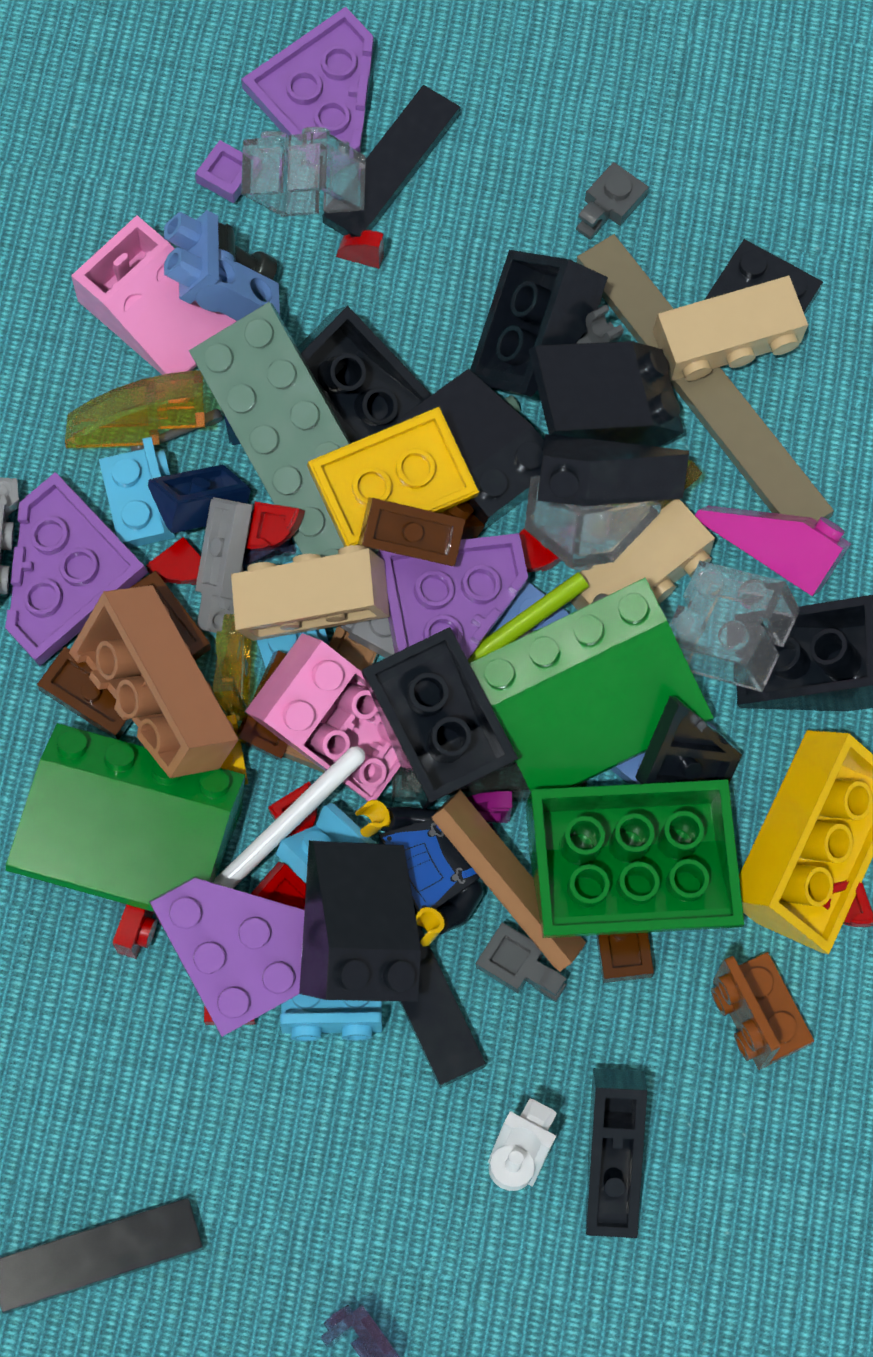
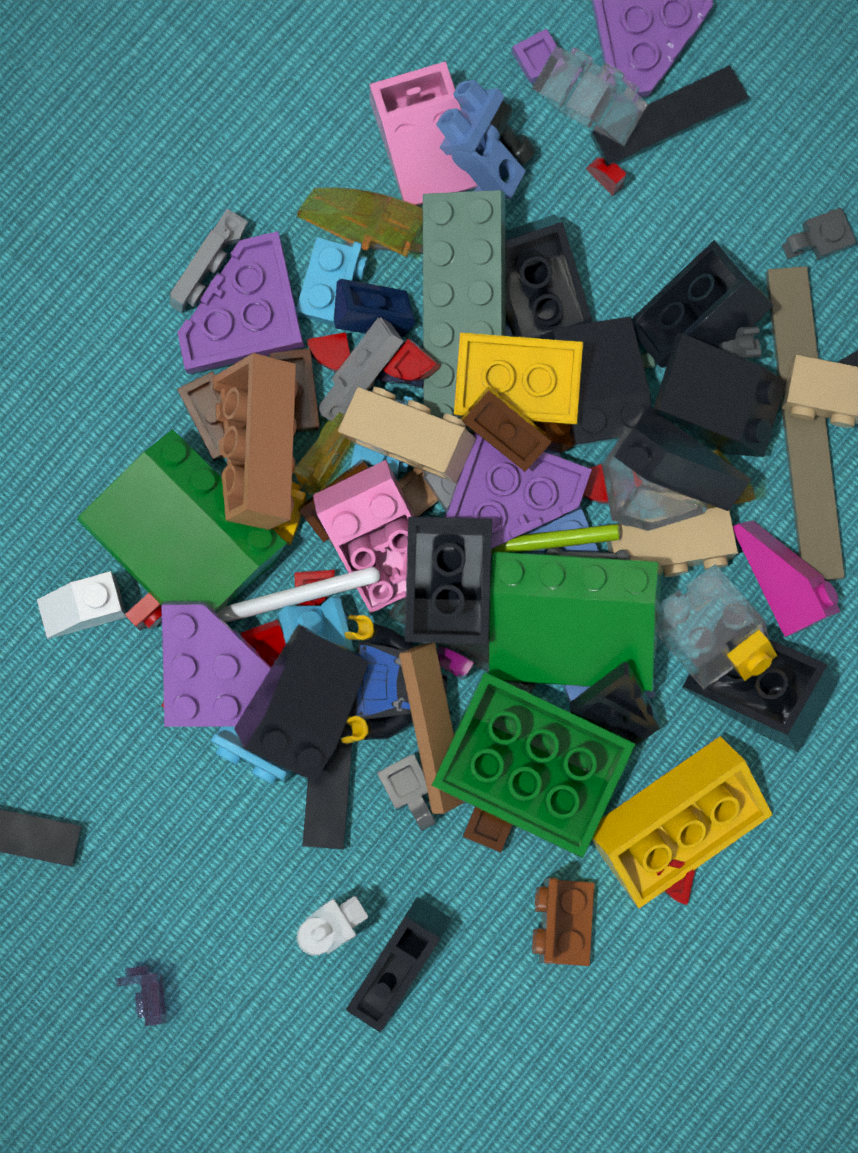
camera: 25 degrees right, 10 degrees up
(58, 962) = (81, 605): none -> white slope
(792, 628) = (752, 655): none -> yellow plate

